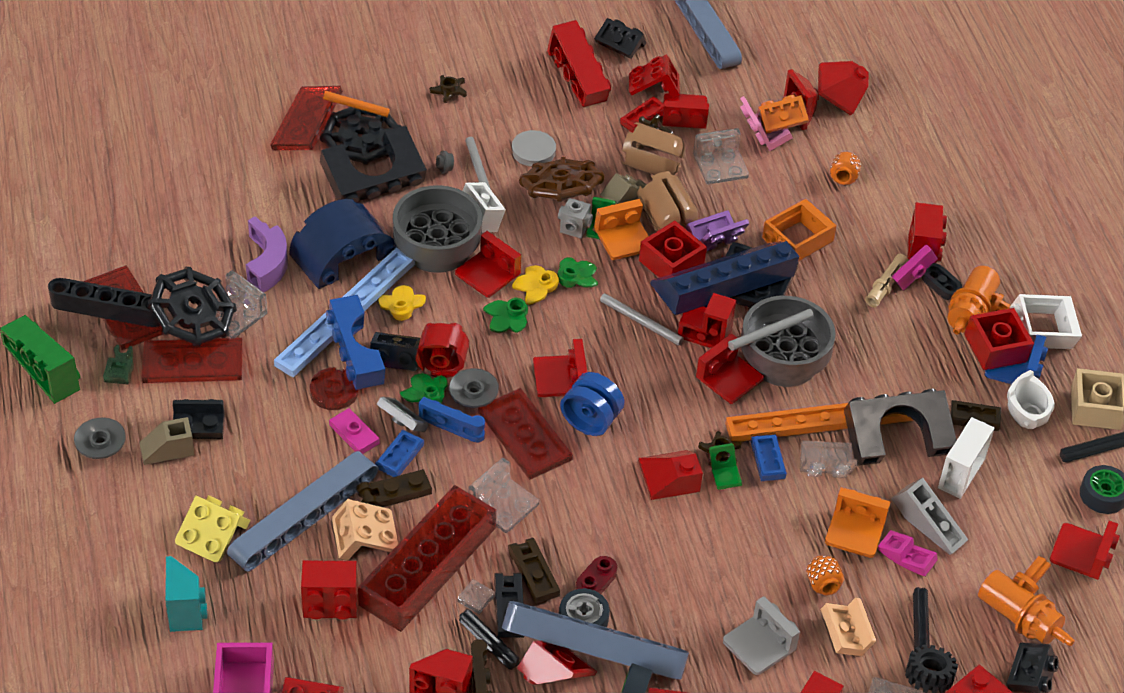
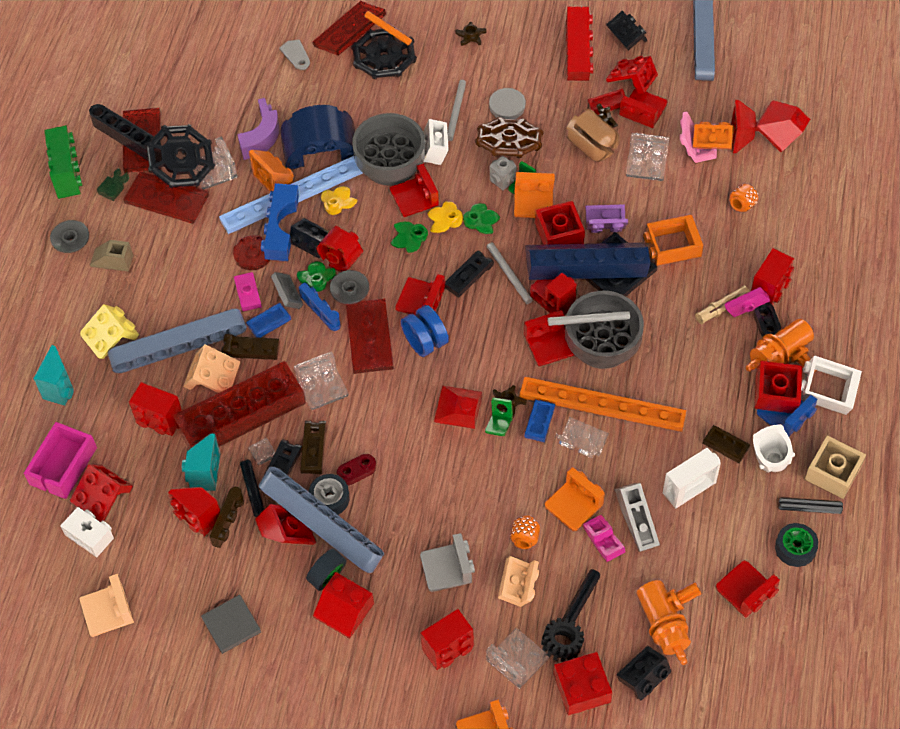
camera: 30 degrees right, 10 degrees up
(204, 417) = (146, 244): black bracket -> none
(258, 163) = (296, 54): none -> light grey piece
(306, 294) = (269, 169): none -> orange slope
(351, 184) = (395, 94): black arch -> none
(423, 628) = (202, 464): none -> teal slope
(445, 161) = (431, 95): dark grey plate -> none
(599, 332) = (468, 273): none -> black plate
(622, 188) = (555, 162): dark tan slope -> none
(667, 201) = (580, 171): medium nougat cylinder -> none
(926, 408) = (631, 414): arch -> none

